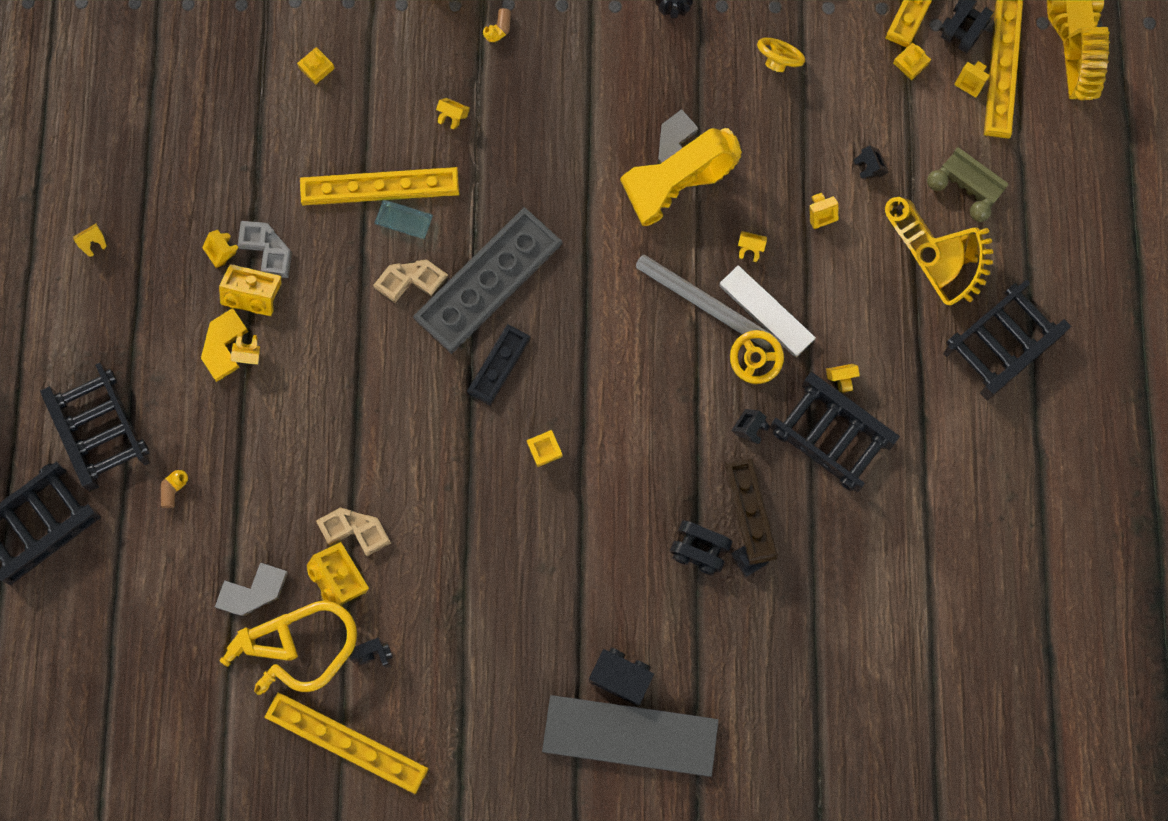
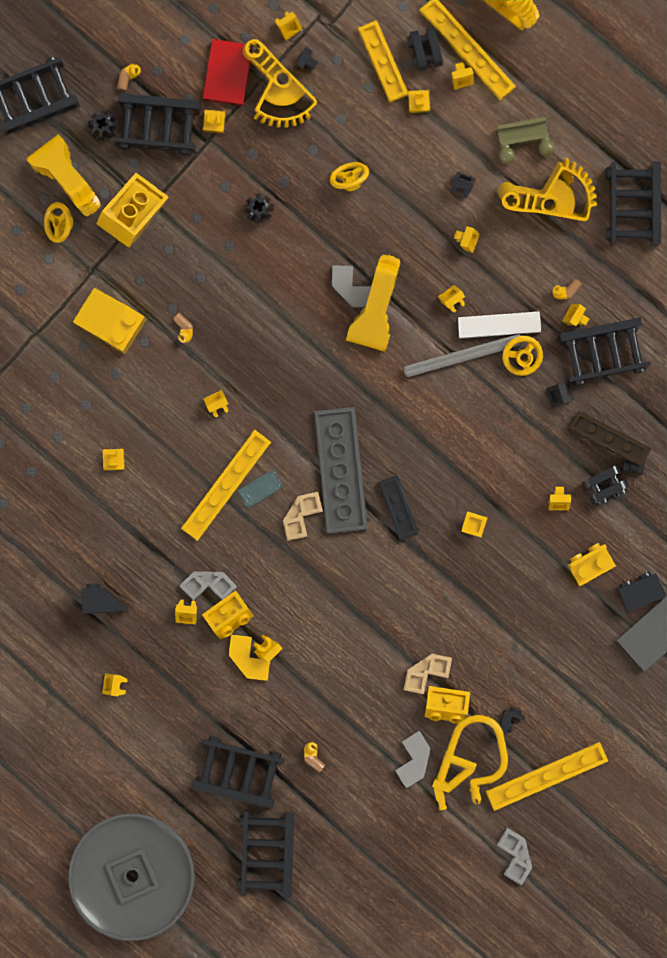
camera: 50 degrees left, 10 degrees up
(161, 155) = (100, 600): none -> black slope
(245, 773) = (520, 864): none -> light grey tile
(607, 601) = (591, 565): none -> yellow bracket
(643, 514) = (559, 500): none -> yellow tile
(858, 349) = (566, 292): none -> arm

